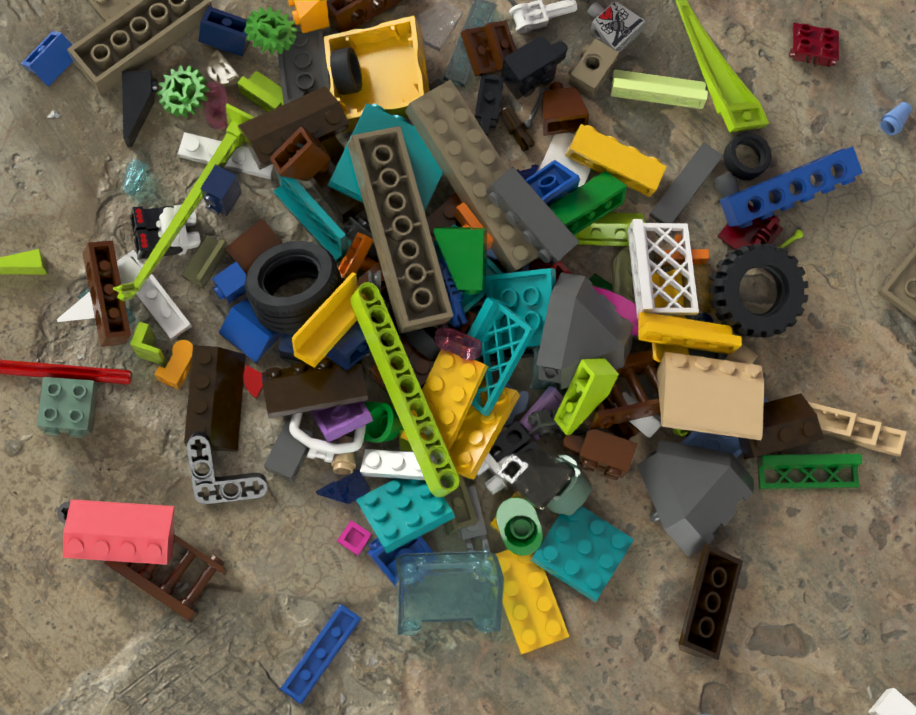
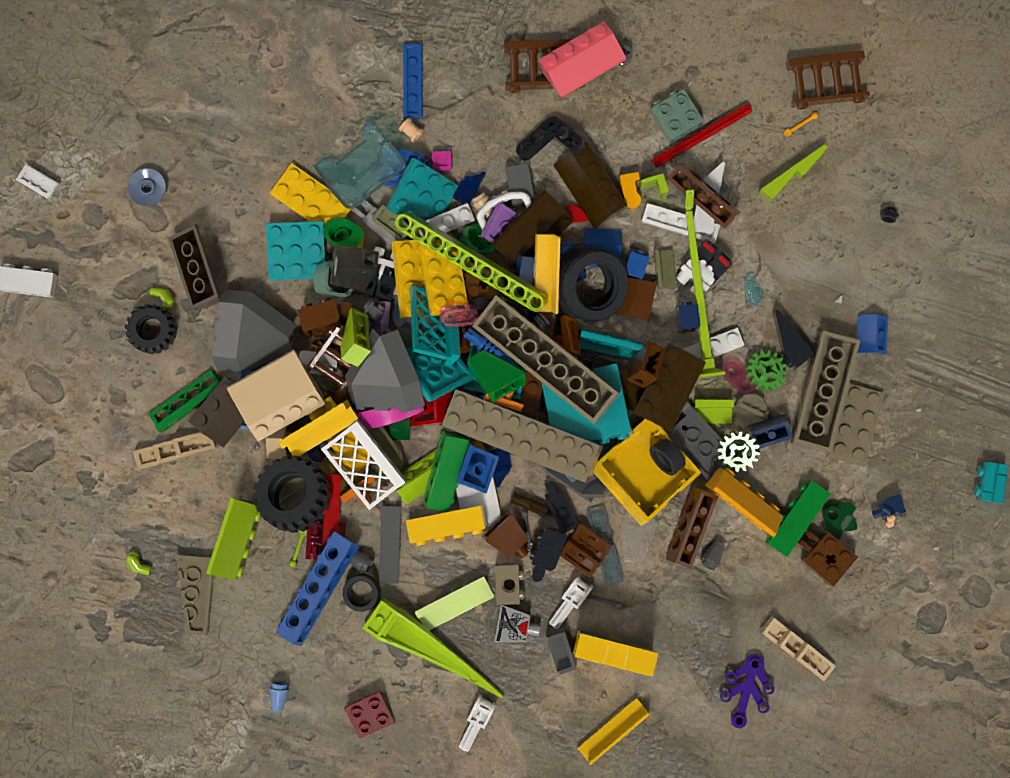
camera: 155 degrees right, 10 degrees up
(362, 596) = (411, 129): none -> light nougat bush
(531, 216) = (467, 426): dark grey brick -> none
(736, 239) = (331, 517): none -> red sticker
(760, 603) = (164, 295): none -> lime arm
(817, 561) = (135, 325): none -> black tyre
(849, 288) = (234, 540): none -> lime slope

